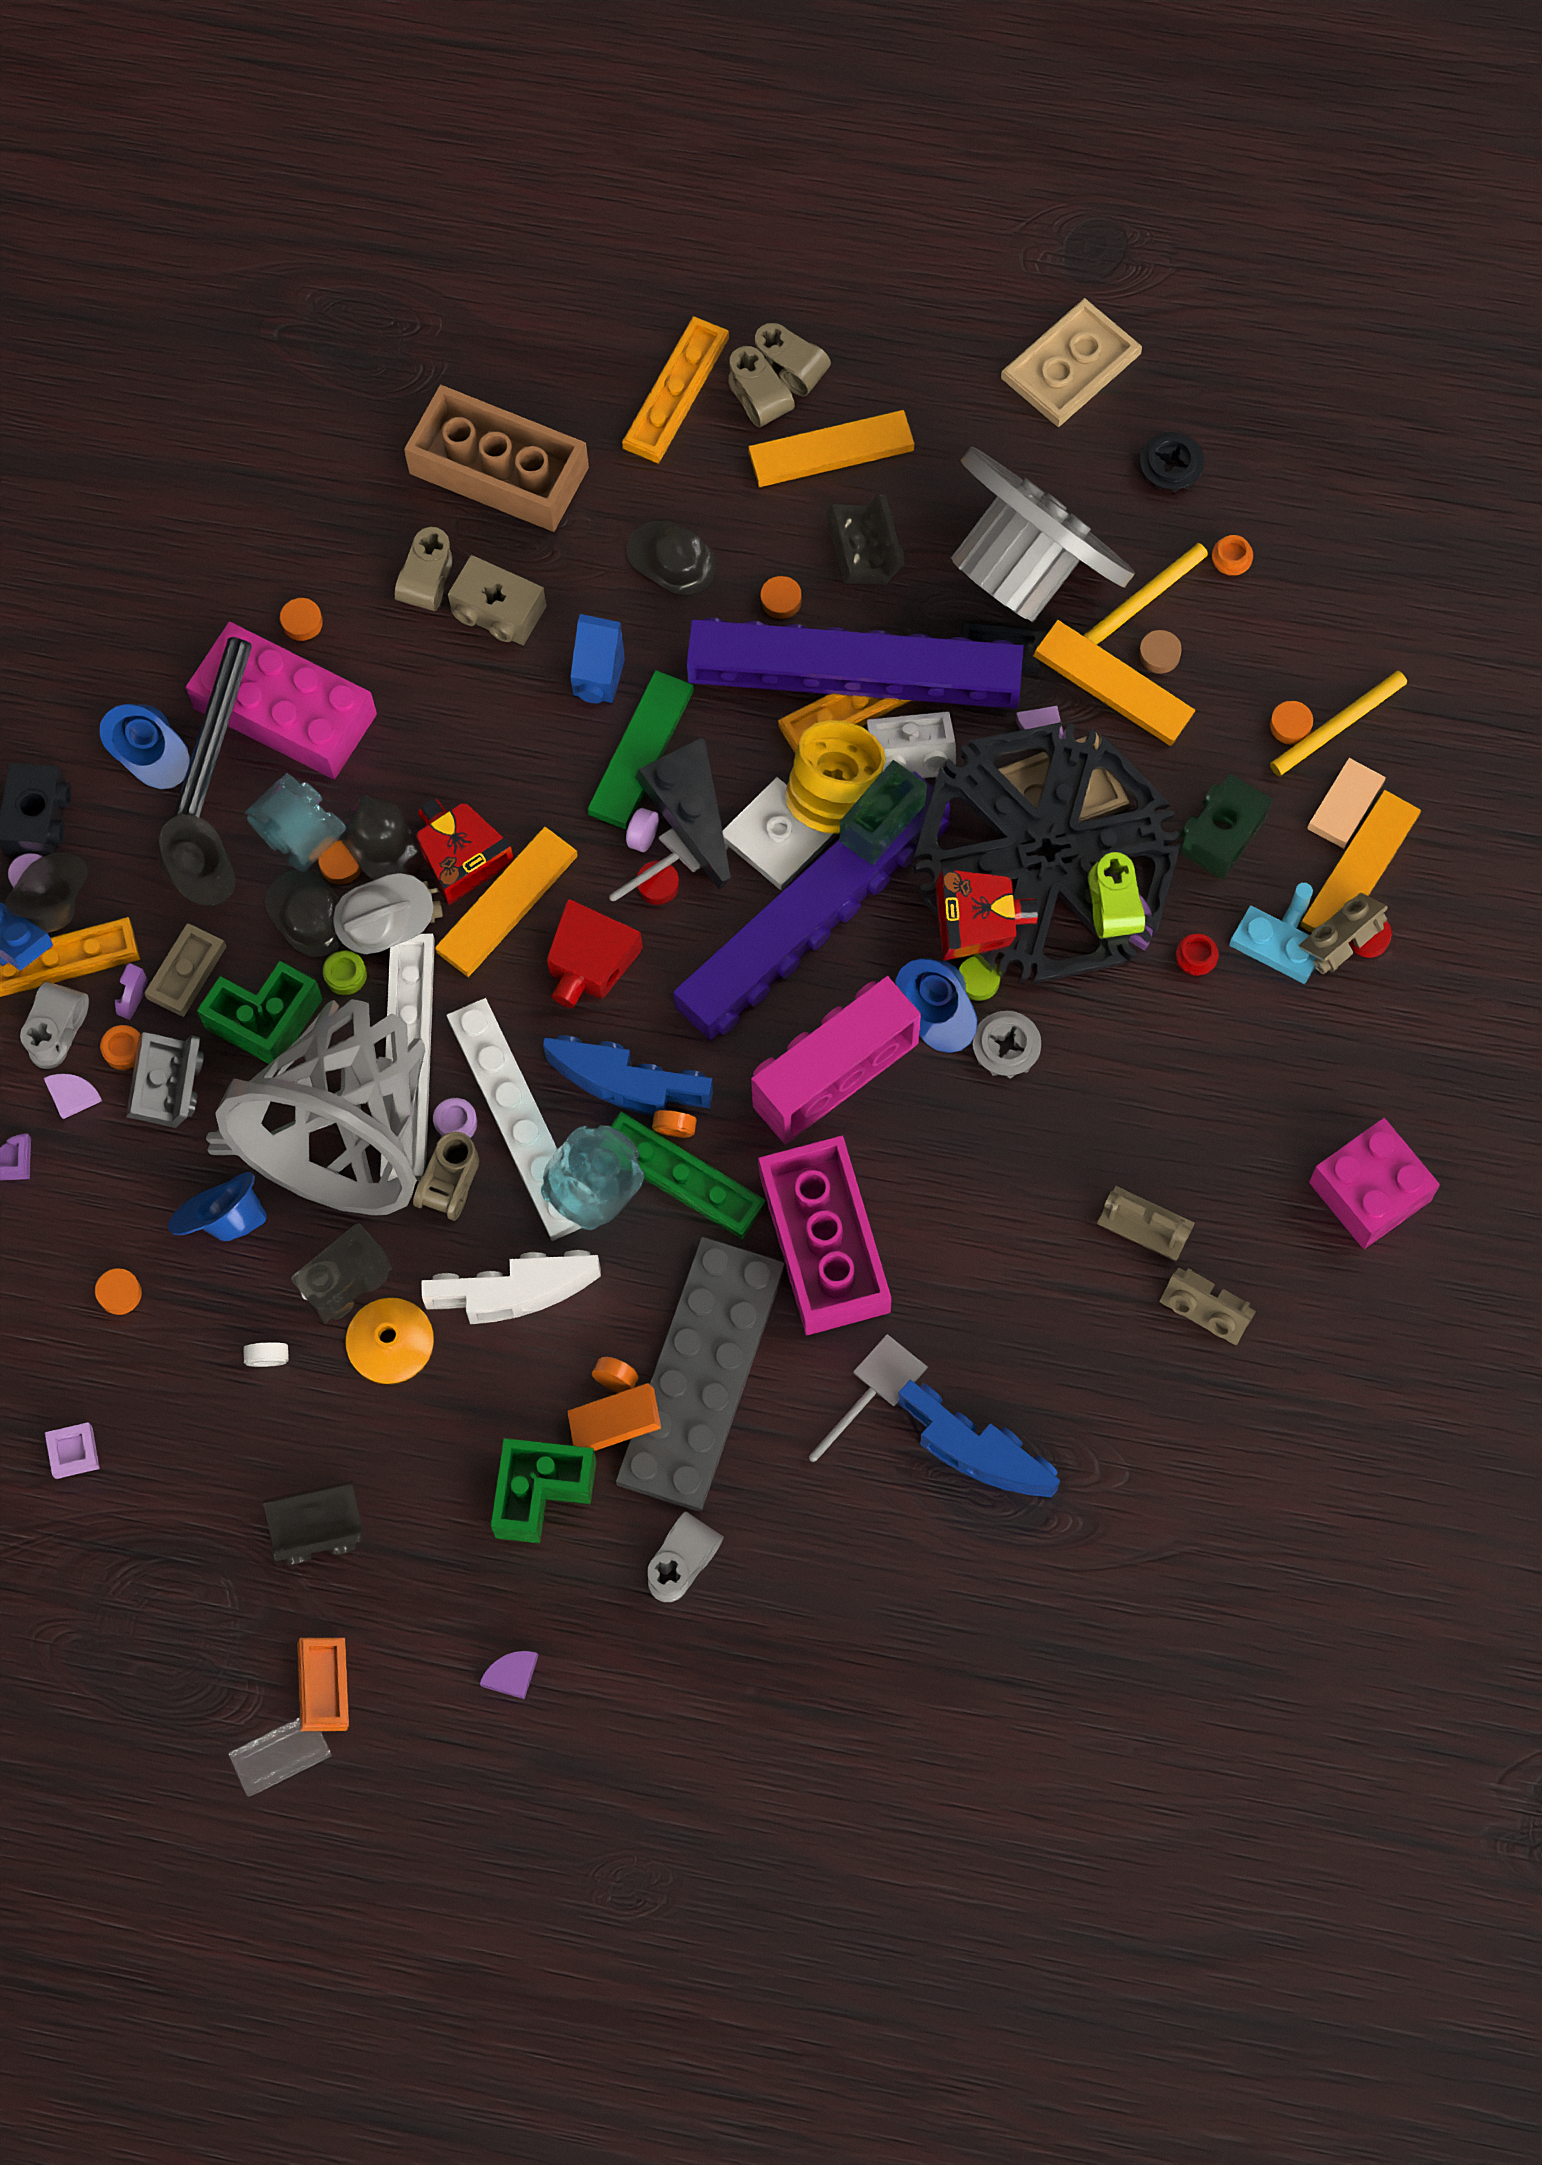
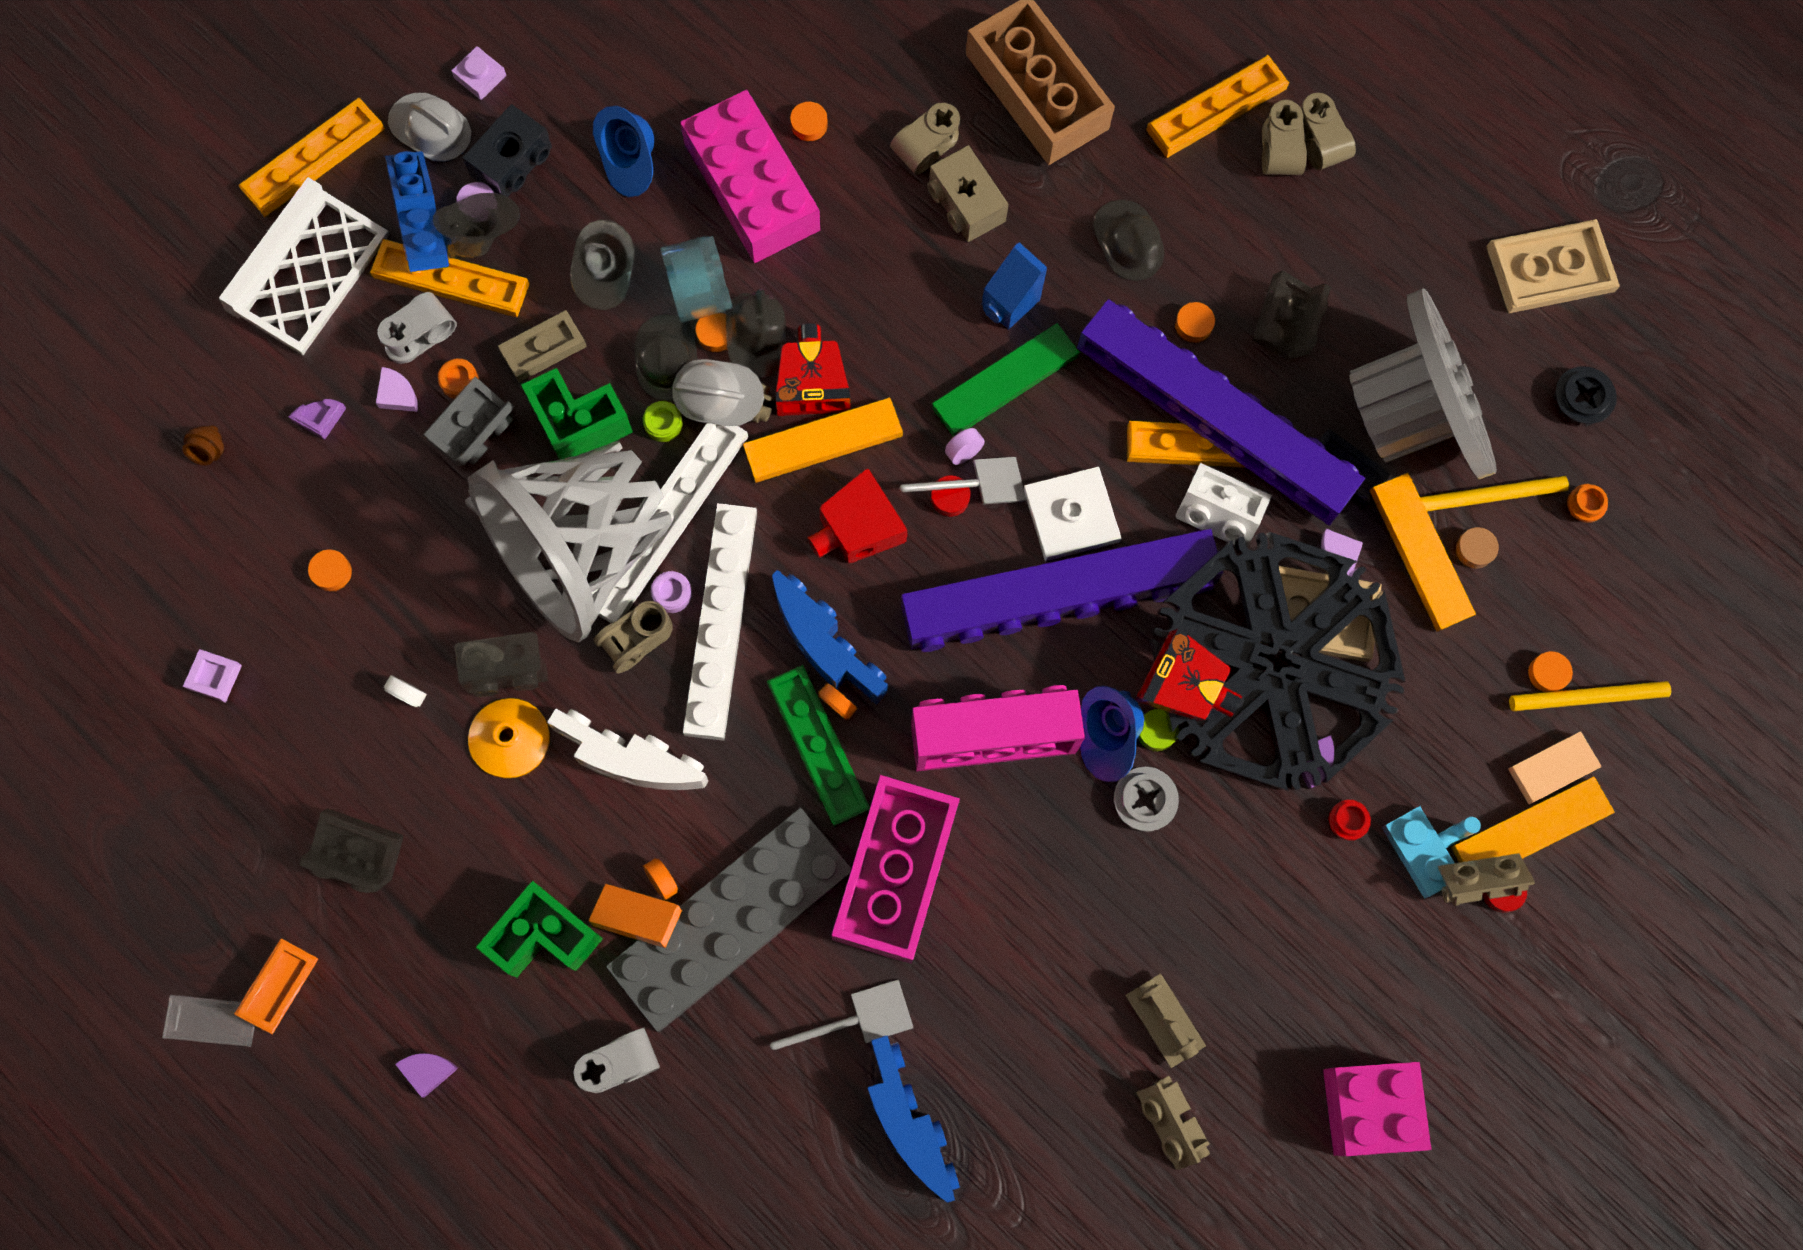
camera: 25 degrees right, 5 degrees up
(136, 985) = (495, 334): medium lavender tile -> none
(213, 727) = (679, 166): black axle -> none
(222, 1211) = (443, 554): blue piece -> none
(592, 1176) = (741, 707): clear light blue brick -> none
(686, 797) = (1015, 439): black wing -> none
(831, 448) = (1312, 224): light orange tile -> none
(832, 772) = (1142, 495): yellow wheel -> none
(883, 812) = (1160, 550): clear green brick -> none
(1117, 903) = (1307, 739): lime piece -> none
(1221, 848) = (1463, 721): clear green brick -> none

